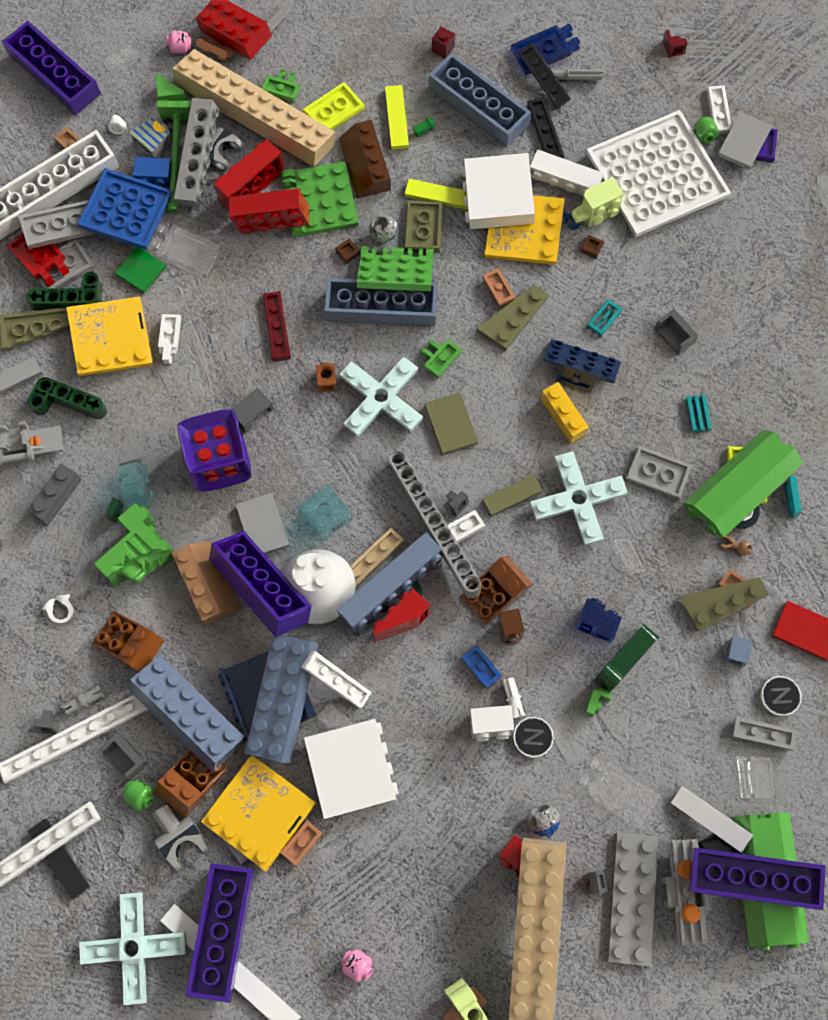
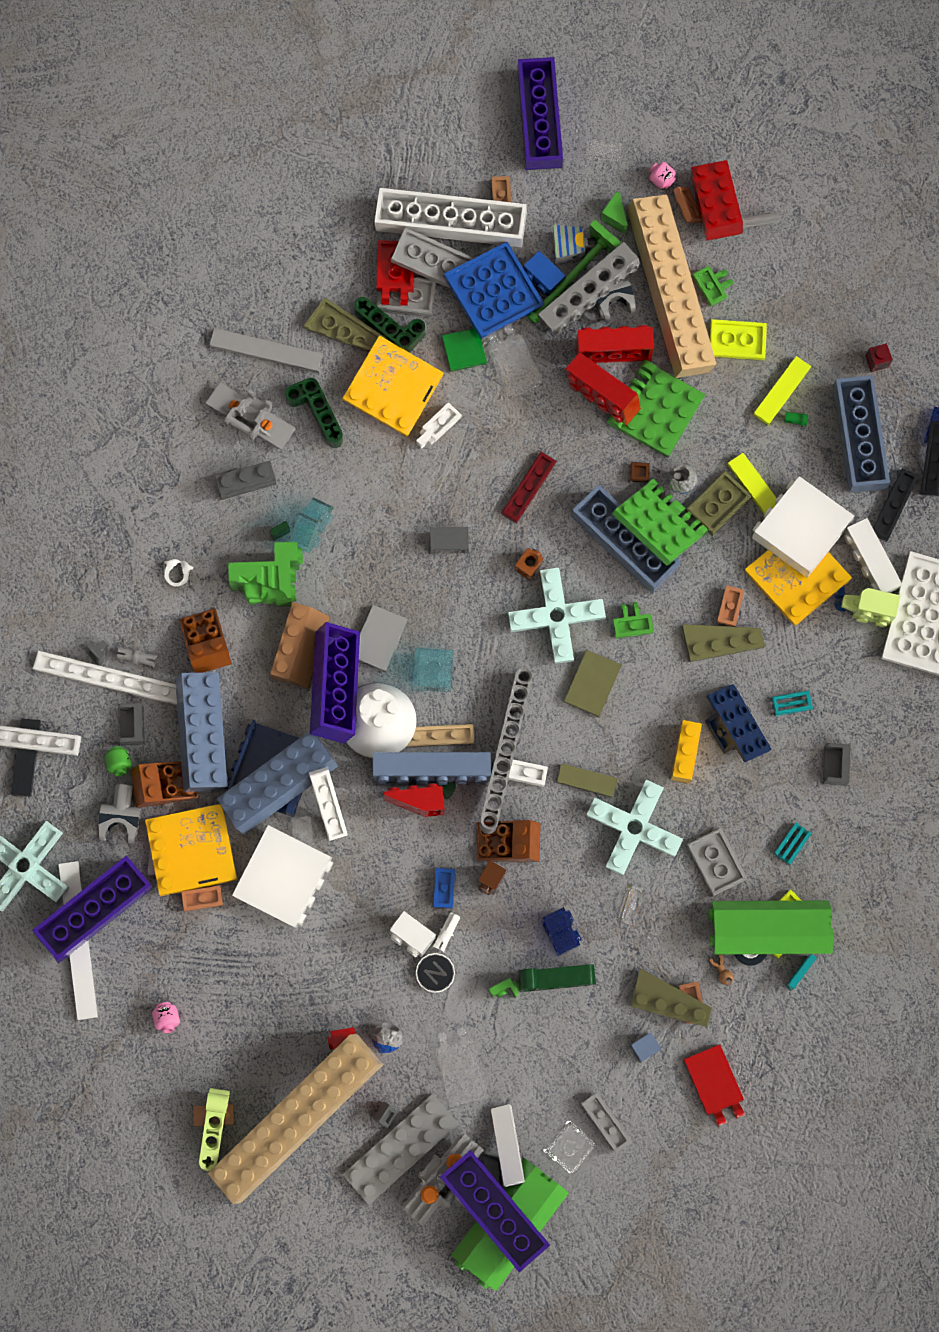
camera: 35 degrees right, 5 degrees up
(117, 125) = (550, 209): white tile -> none
(214, 450) = (391, 551): dark purple piece -> none
(365, 160) = (721, 407): reddish brown slope -> none
(457, 502) = (540, 749): dark grey tile -> none
(592, 246) = (838, 636): reddish brown tile -> none
(780, 696) = (646, 1108): black tile -> none

